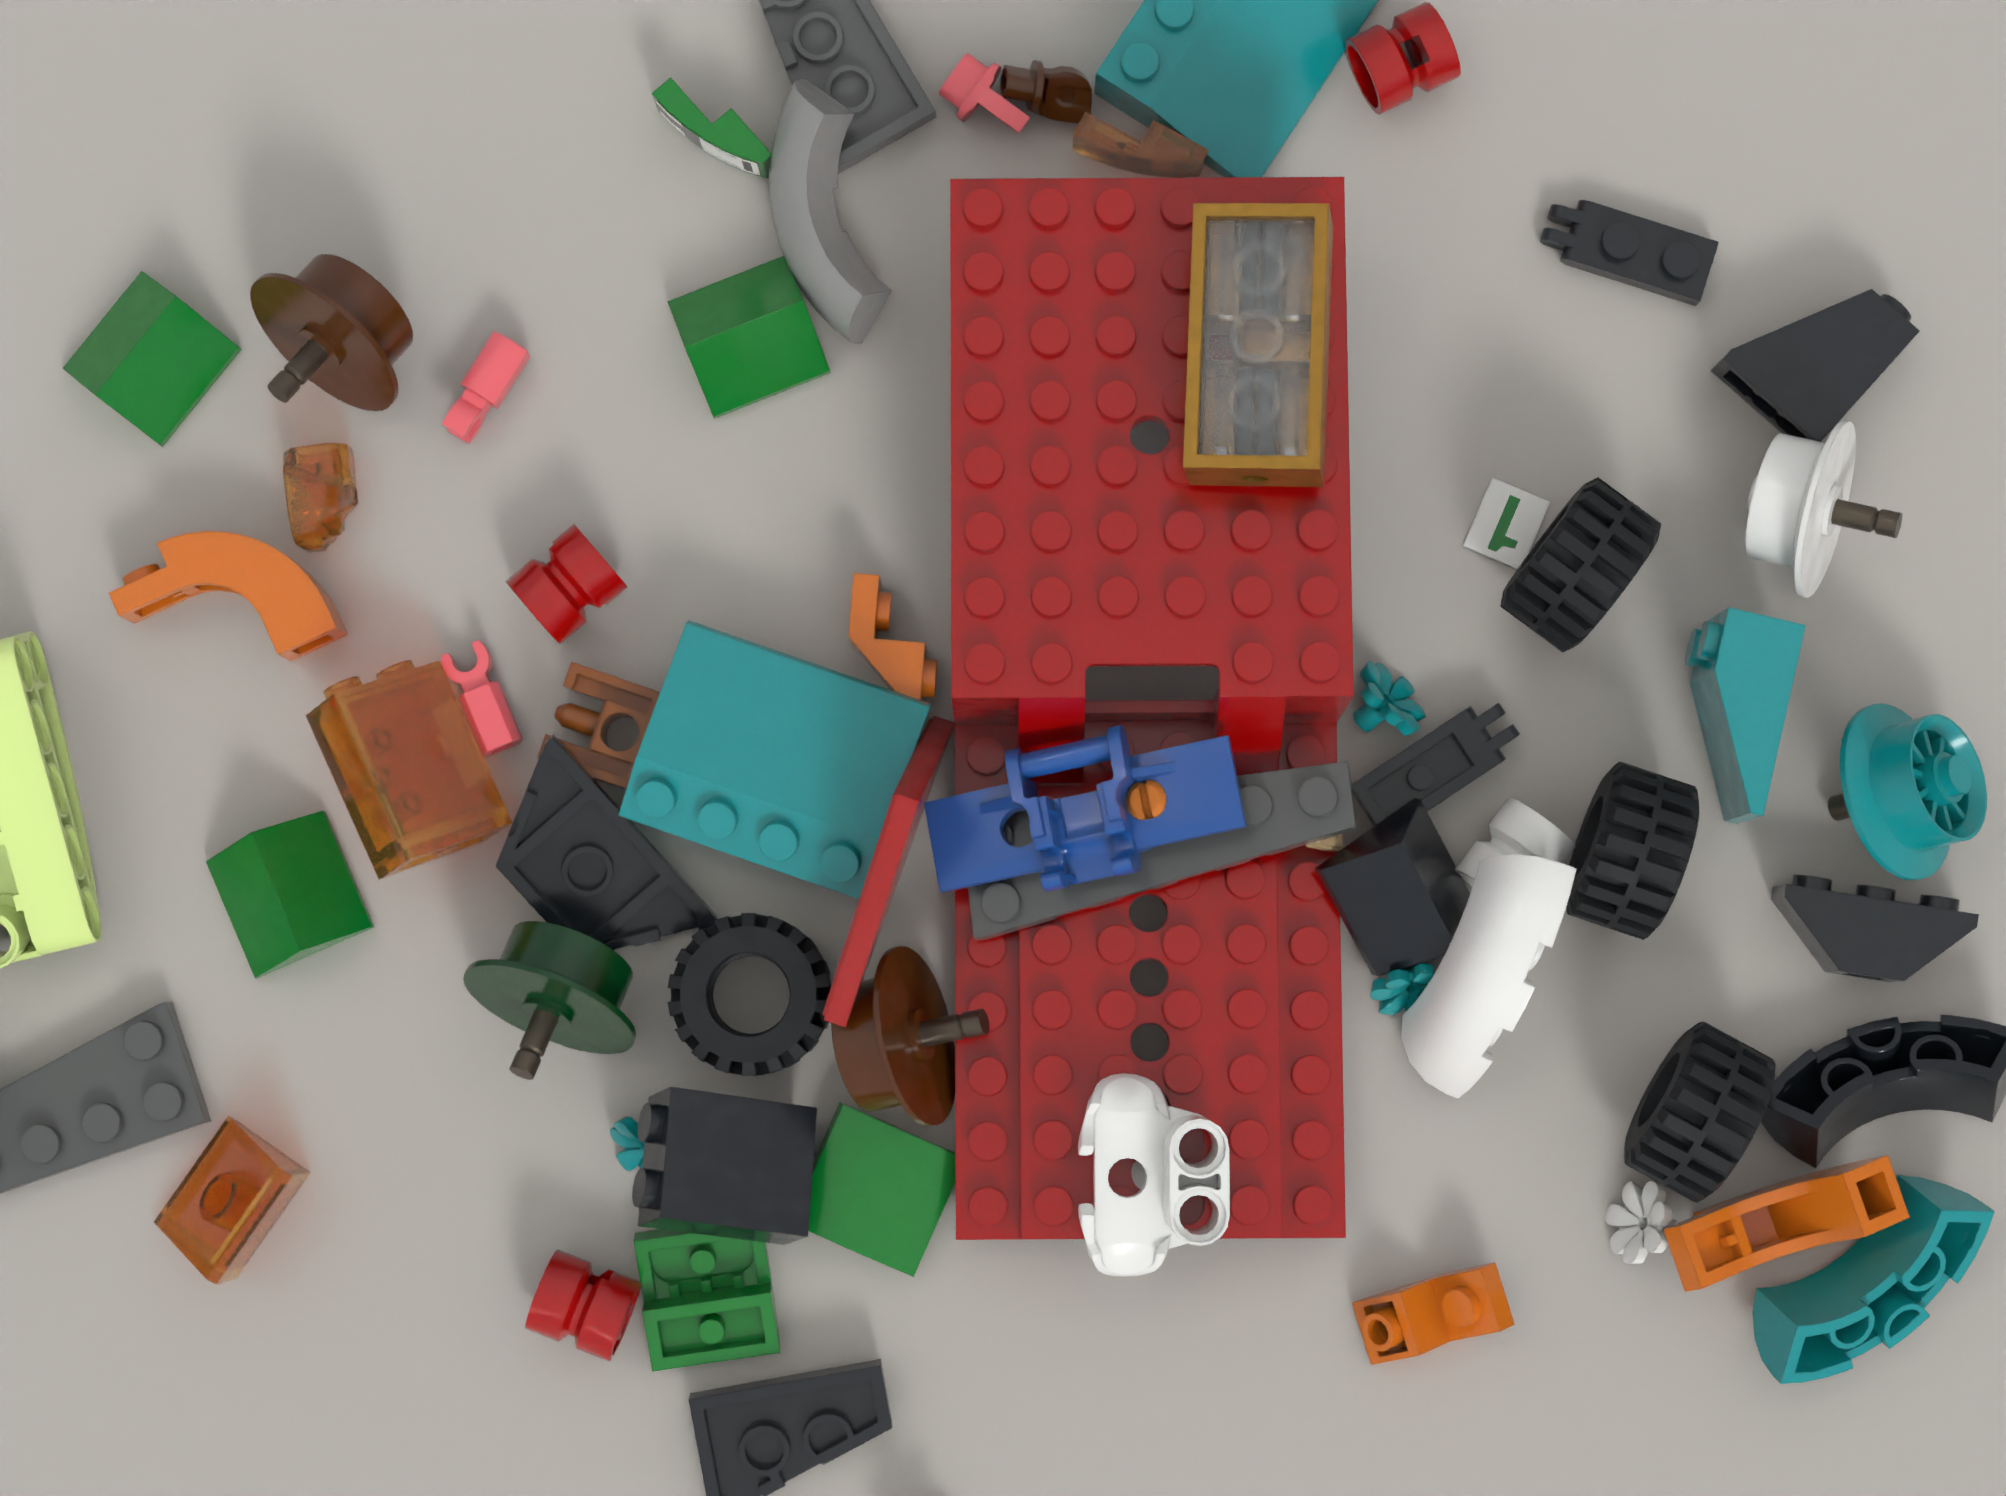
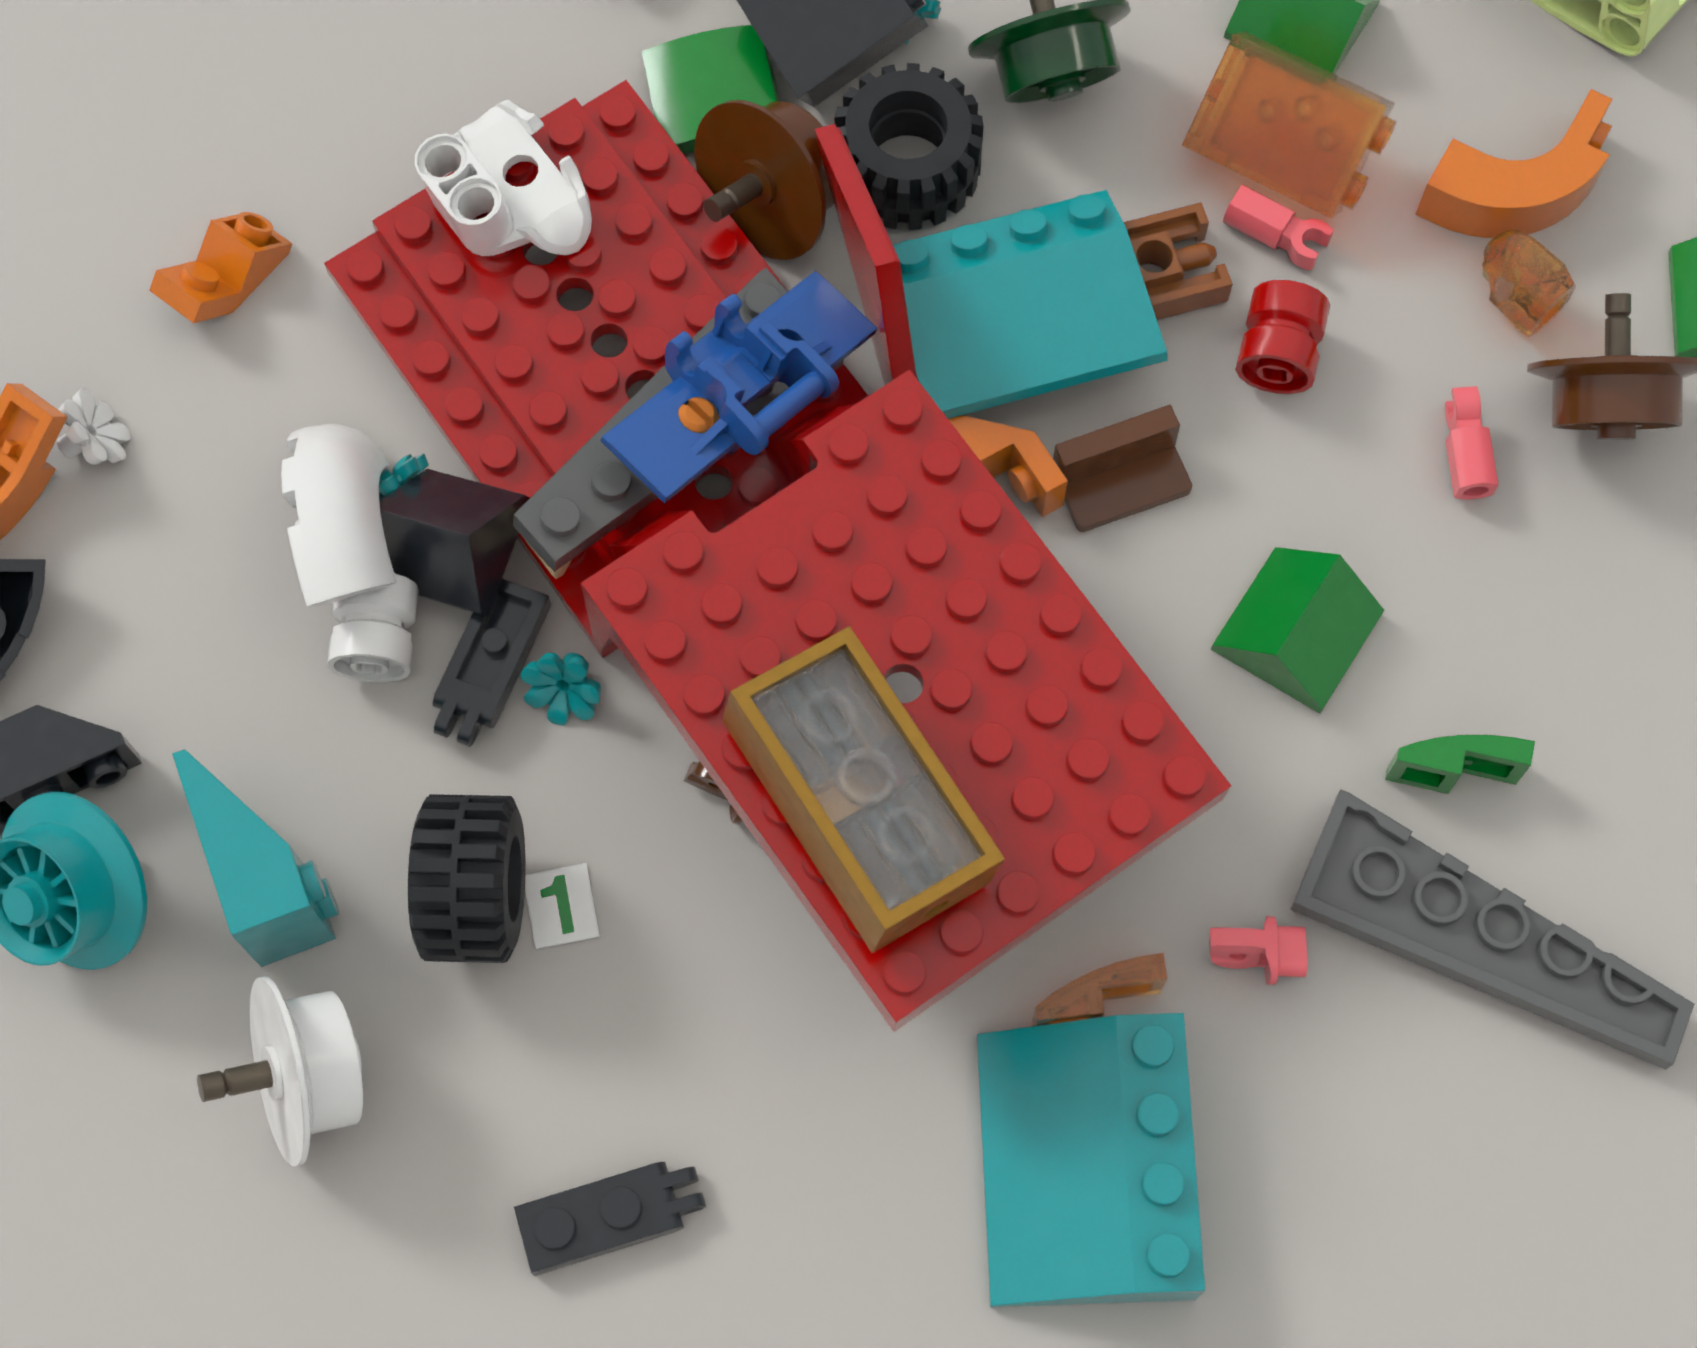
camera: 145 degrees right, 15 degrees down
(590, 865) = (1095, 147): black wing -> none
(789, 567) = (1123, 469): none -> reddish brown panel
(804, 213) = (1300, 718): light grey brick -> none
(1049, 92) = (1214, 989): reddish brown piece -> none
(1383, 68) = (942, 1213): red wheel -> none
(1633, 850) = (273, 677): black tyre -> none
(1699, 1112) = (89, 515): black tyre -> none
(1819, 365) = (366, 1220): black slope -> none

